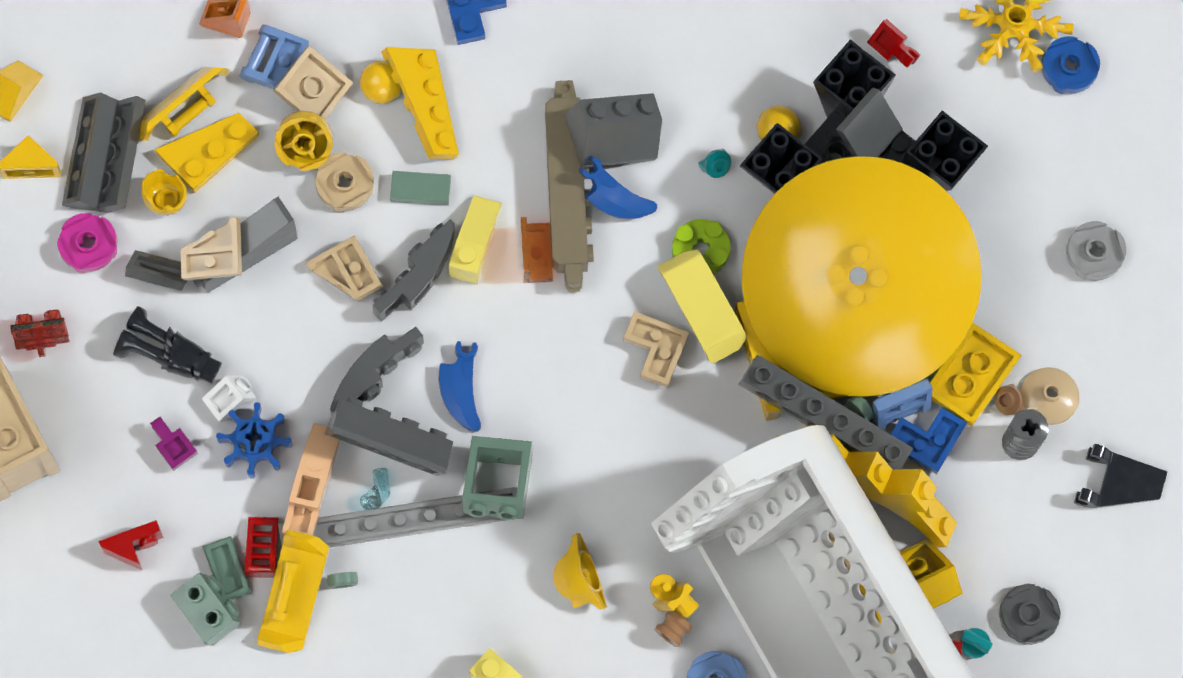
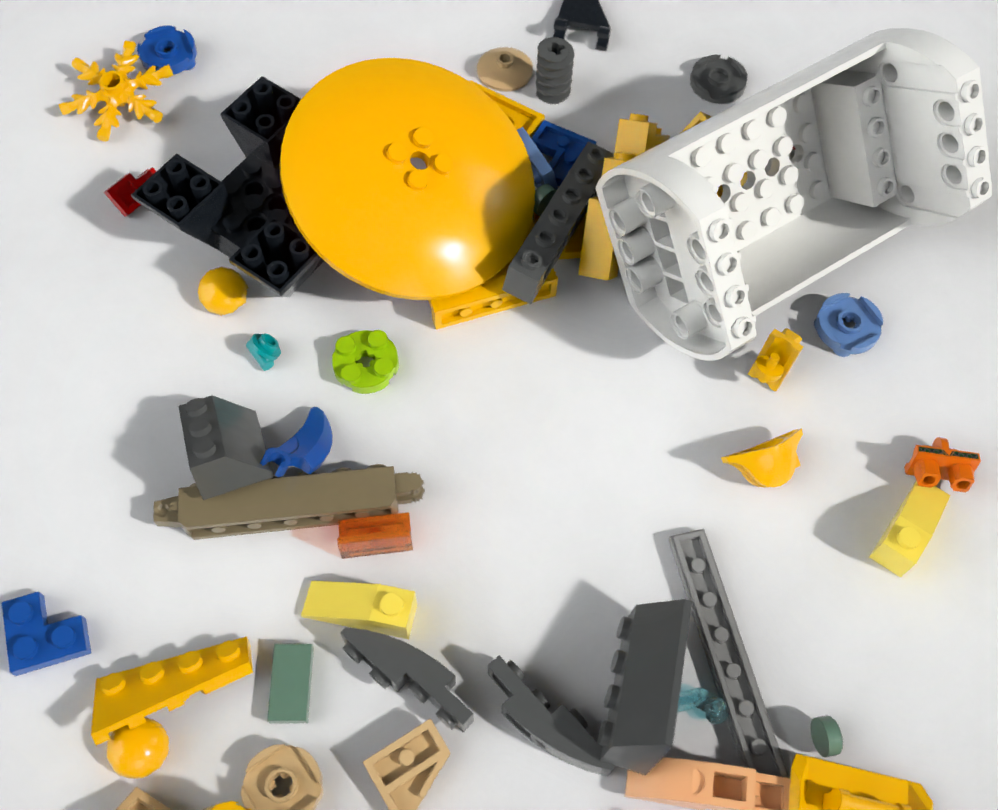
camera: 90 degrees left, 10 degrees down
(457, 388) = (554, 615): blue piece -> none
(497, 451) = (632, 553): sand green window -> none
(662, 341) = (483, 389): tan plate -> none
(673, 628) = (805, 365): medium nougat wheel -> none
(703, 304) = (434, 346): light yellow piece -> none
(869, 126) = (237, 179): dark grey tile -> none
(1009, 400) = (516, 90): medium nougat plate -> none
(1104, 237) = (355, 44): light grey plate -> none

